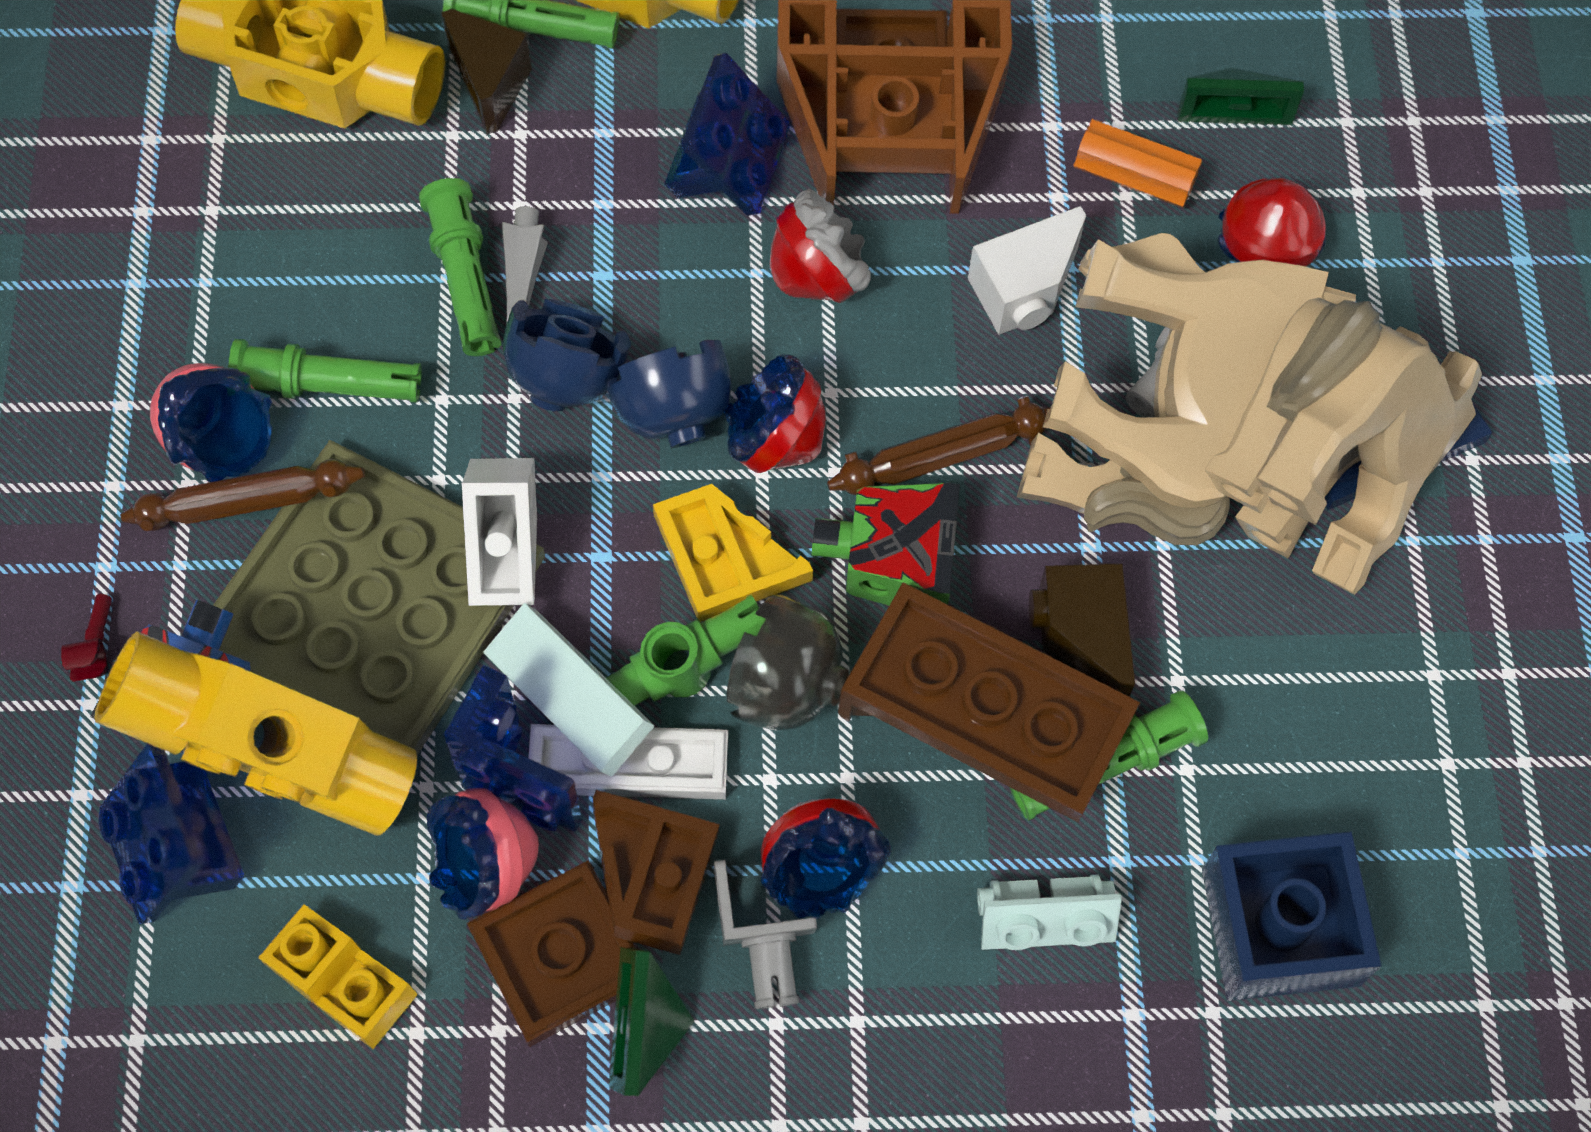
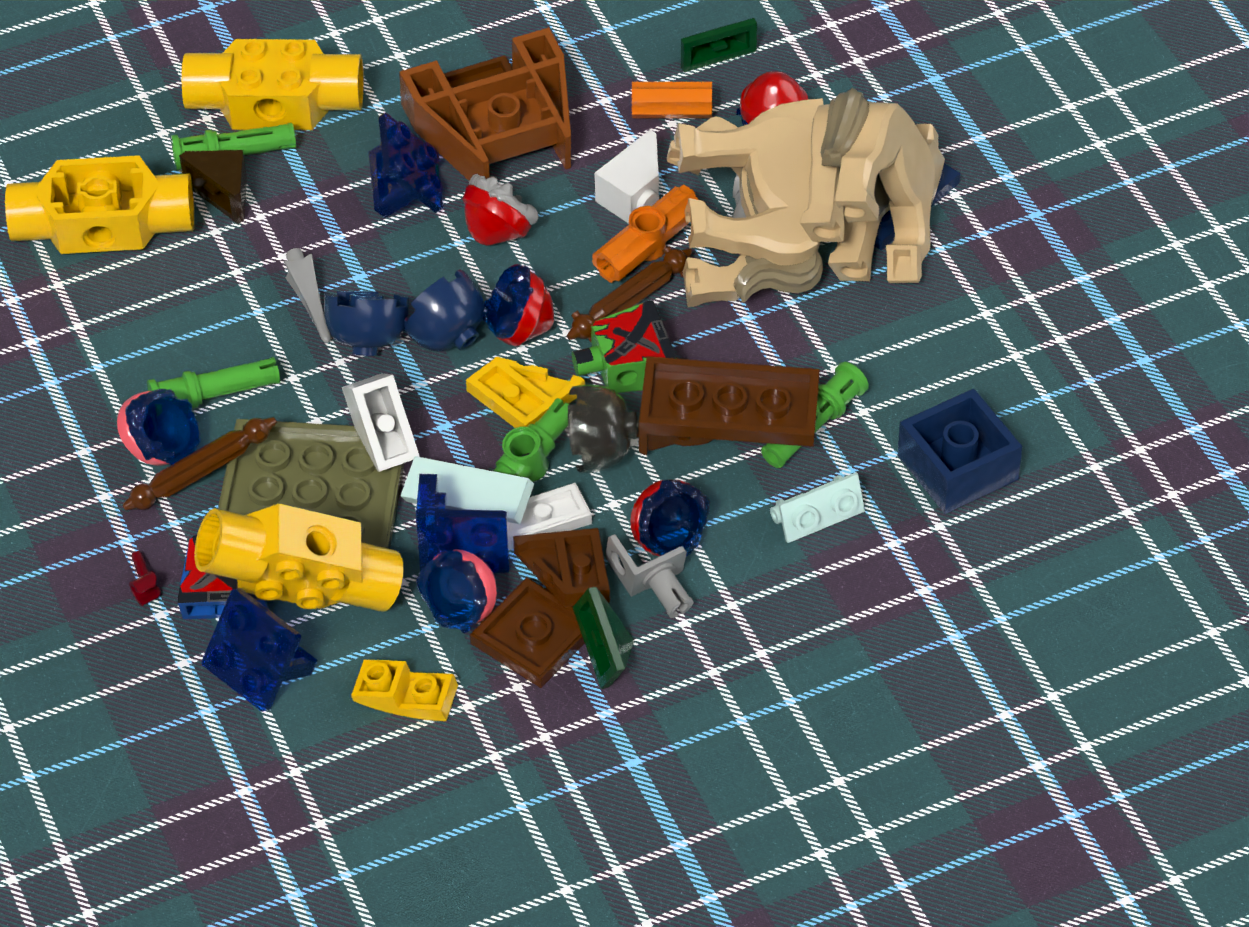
camera: 20 degrees left, 15 degrees down
(457, 243) = (258, 285): bright green pin -> none
(977, 378) = (644, 236): none -> orange piece
(1086, 621) = (763, 341): dark brown slope -> none

